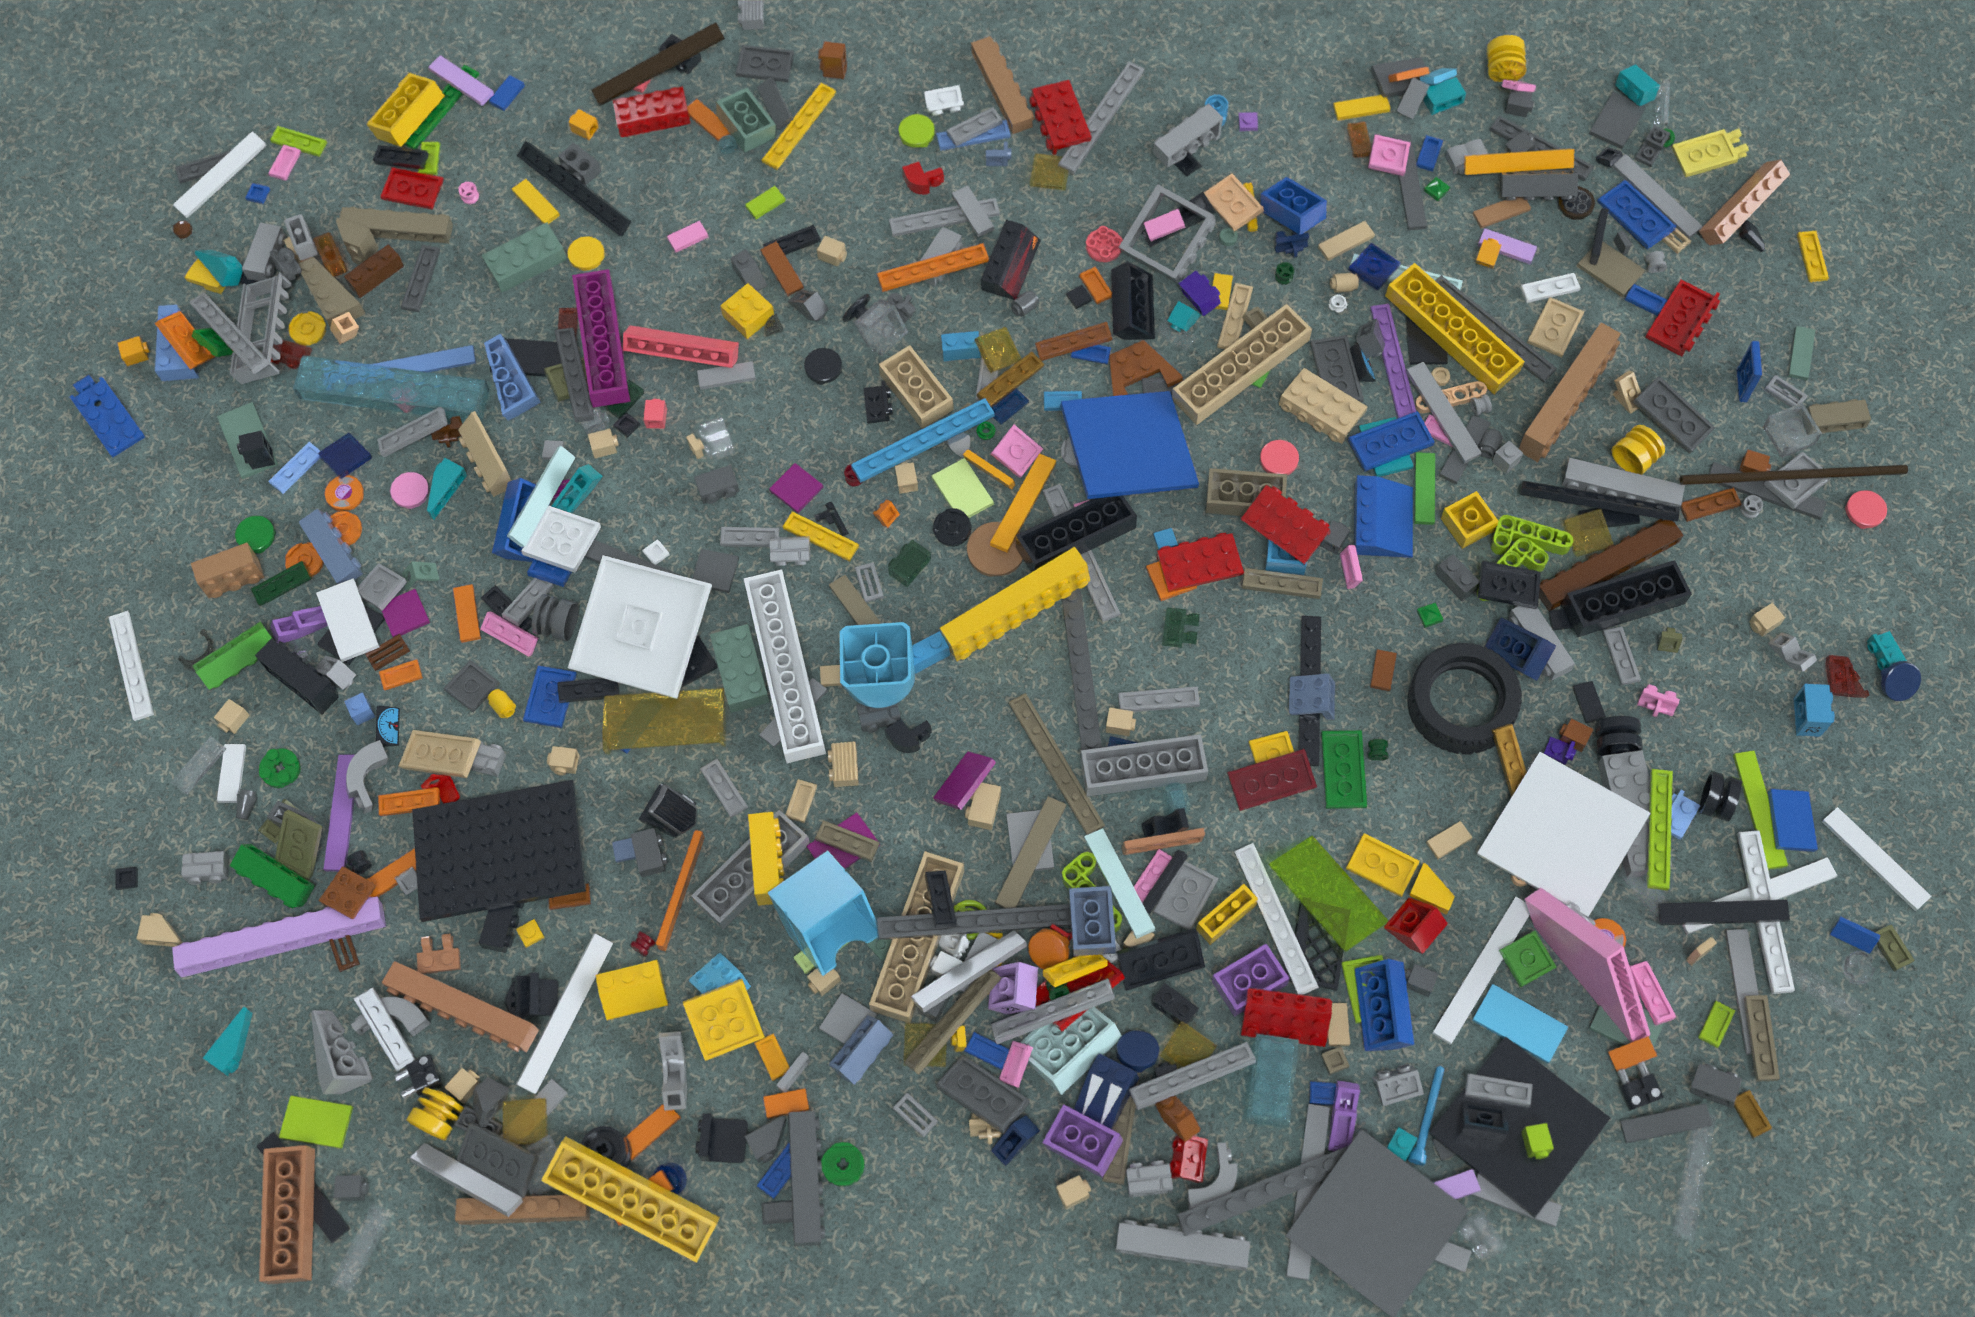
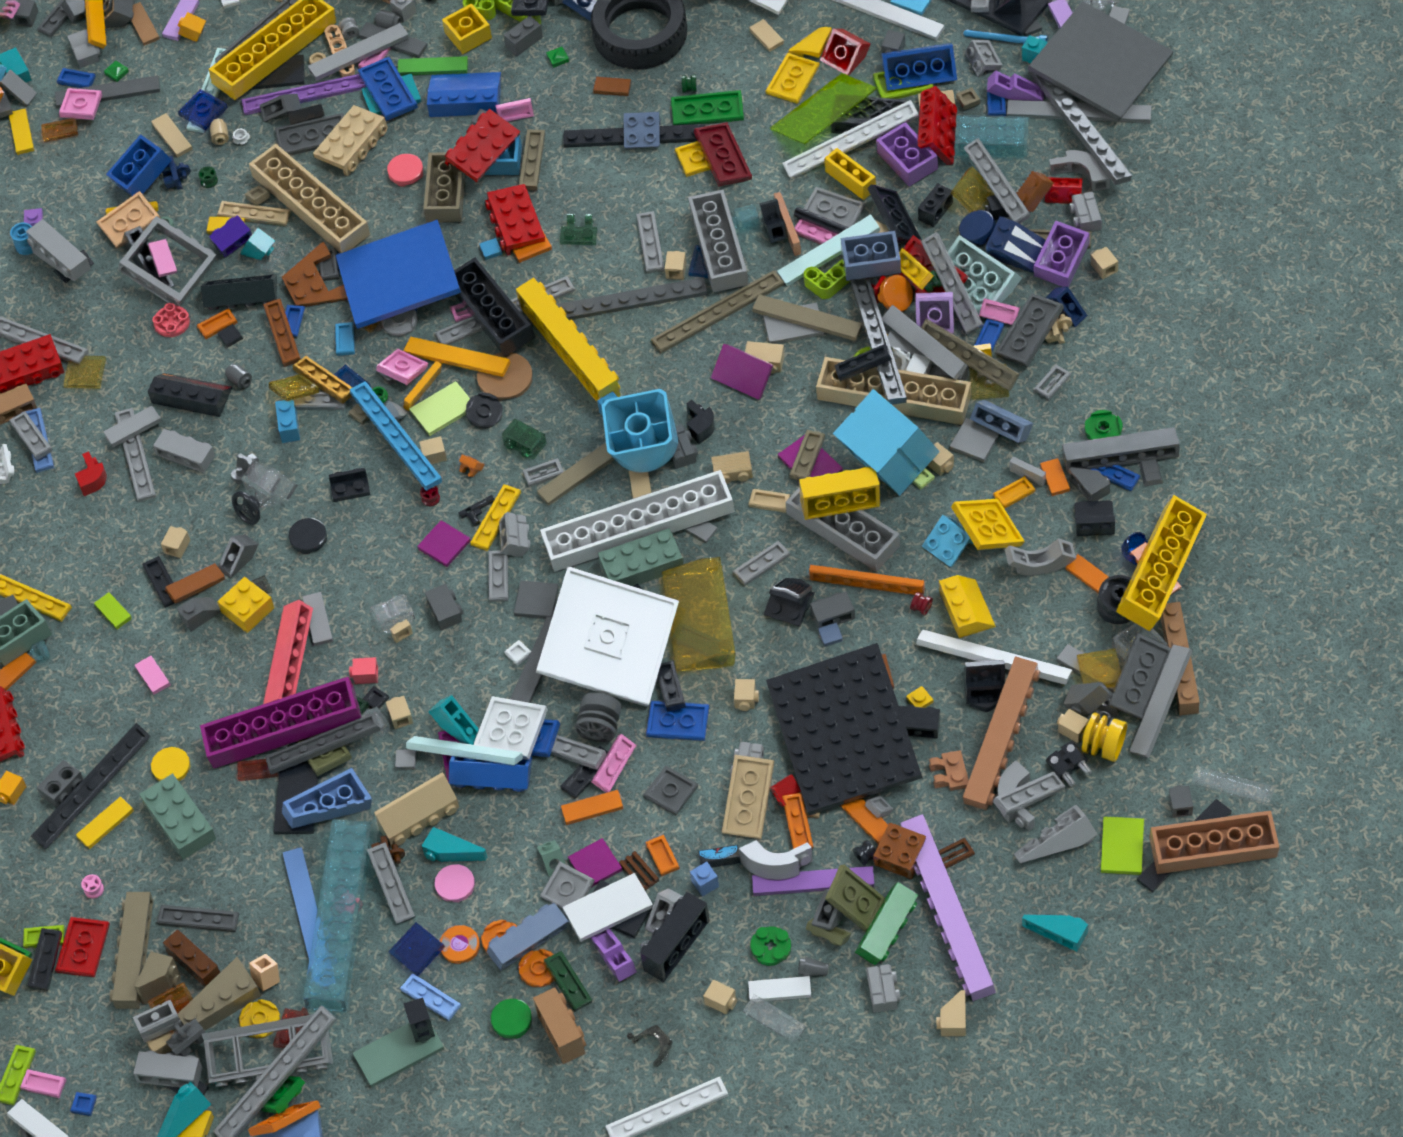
camera: 90 degrees left, 10 degrees down
(126, 878) = (899, 1063): black tile -> none
(232, 656) = (653, 1003): bright green brick -> none
(501, 703) = (689, 757): yellow brick -> none
(916, 131) = (32, 487): lime tile -> none
(916, 387) = (334, 450): tan brick -> none
(932, 267) = (202, 446): orange tile -> none
(998, 157) = (67, 412): sand blue bracket -> none
(1174, 1246) = (1138, 188): light grey brick -> none

